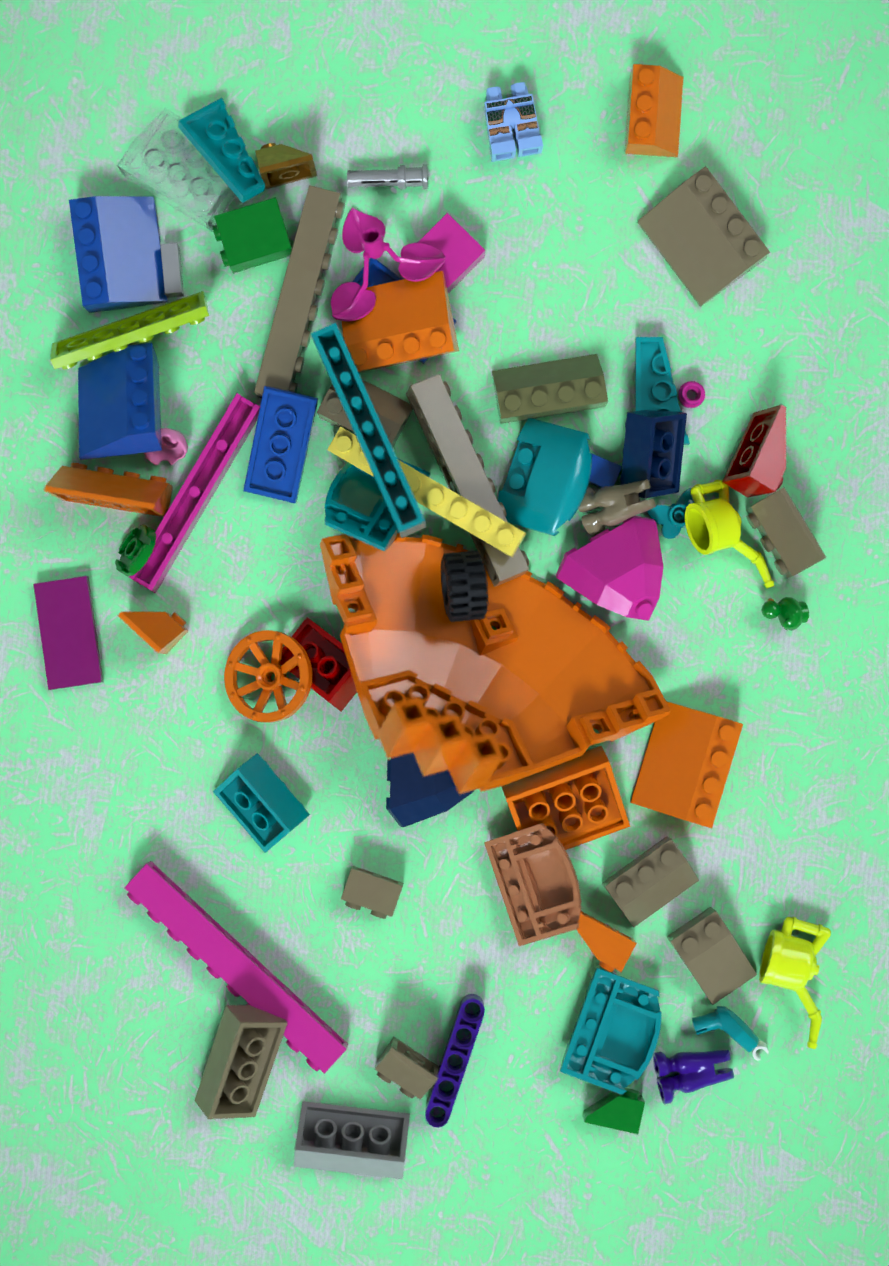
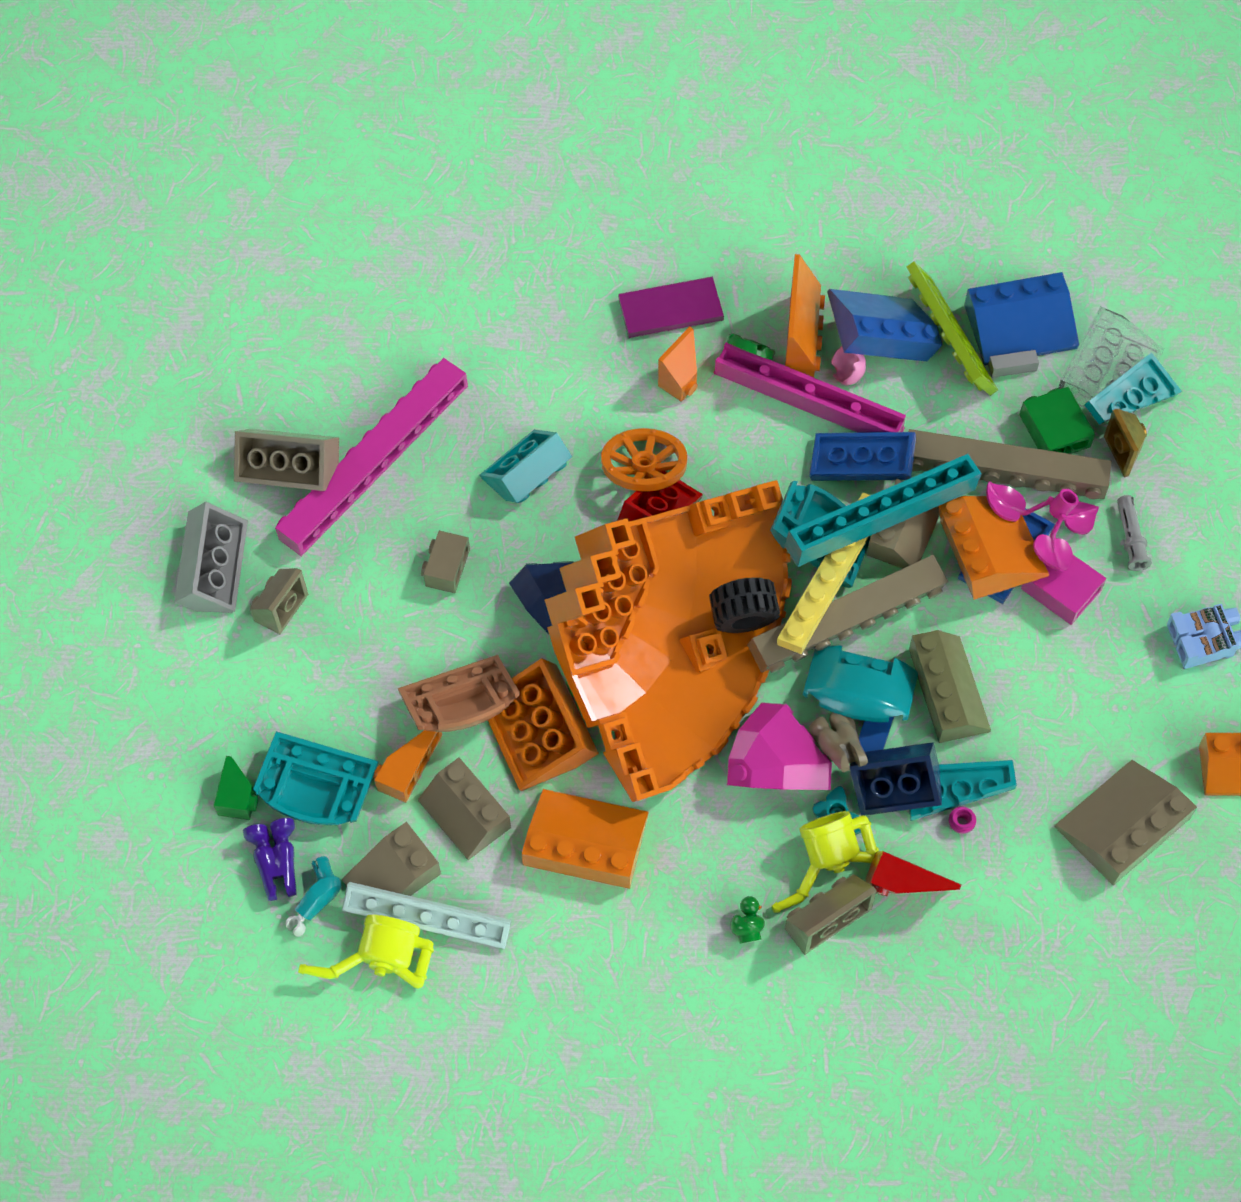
camera: 85 degrees right, 25 degrees down
(454, 1073) = (295, 650): dark purple beam -> none
(761, 923) = (428, 915): none -> light aqua tile

